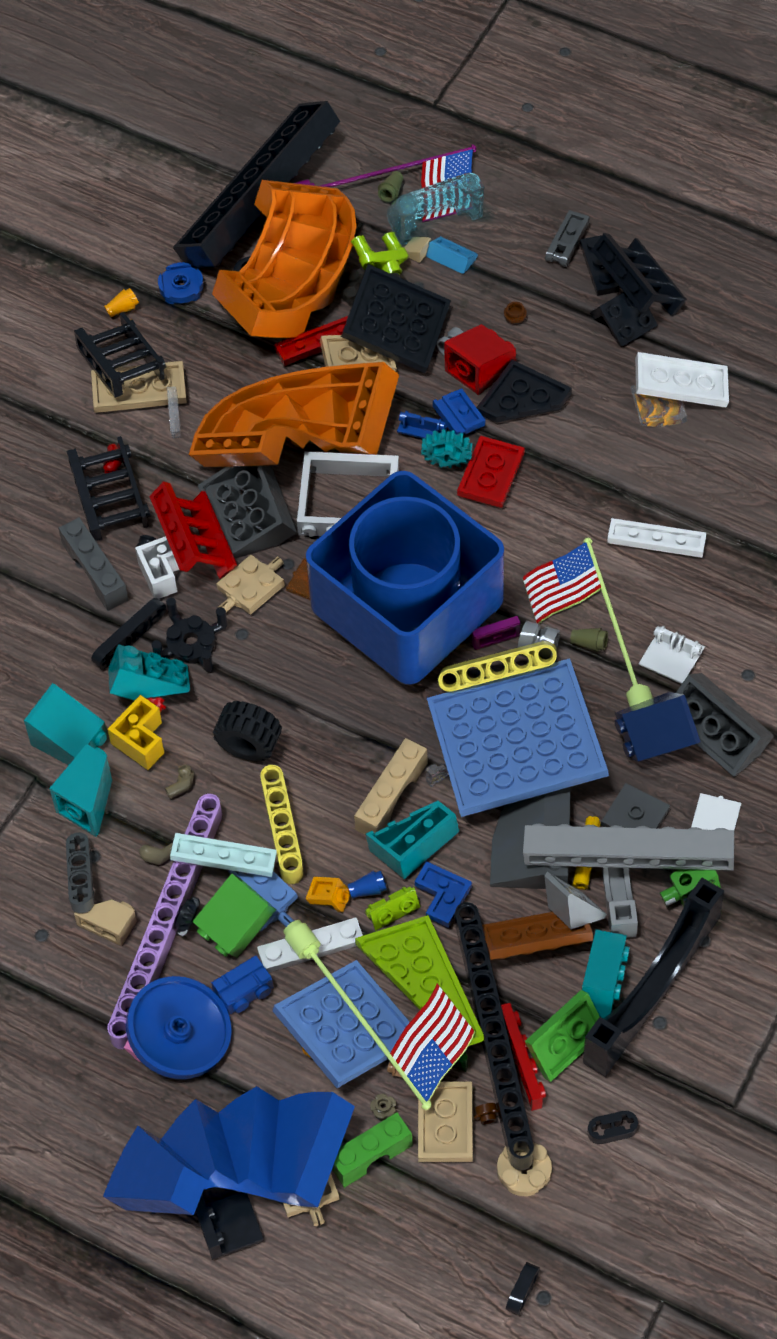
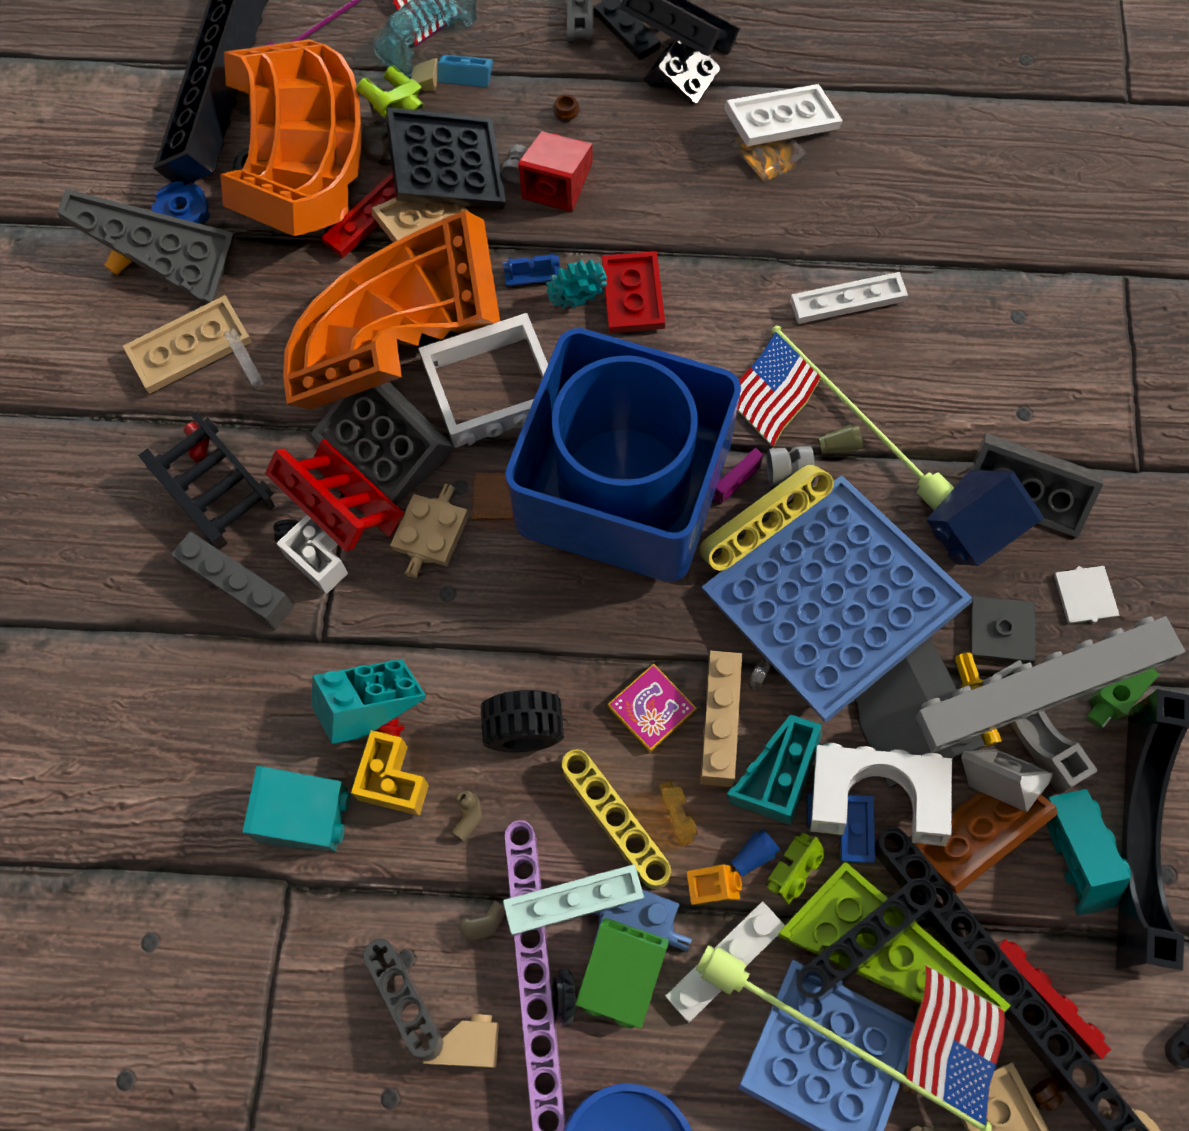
camera: 25 degrees left, 10 degrees up
(84, 789) = (357, 882): teal slope -> none
(106, 368) = (140, 336): black fence -> none
(129, 632) = (315, 650): black beam -> none
(158, 311) = (169, 247): none -> dark grey wing
(186, 628) = (380, 614): black plate -> none
(243, 985) = (675, 1059): blue brick -> none
(326, 847) = (673, 800): none -> clear yellow plate
(347, 765) = (652, 707): none -> tile
(390, 187) = (363, 21): olive cone -> none
(395, 954) = (875, 925): none -> black beam
(454, 852) = (924, 778): none -> white arch
(459, 412) = (564, 238): blue plate -> none
(522, 393) = (621, 193): black plate -> none
(563, 1035) = (1090, 951): bright green plate -> none
(671, 654) = (937, 424): white hinge -> none

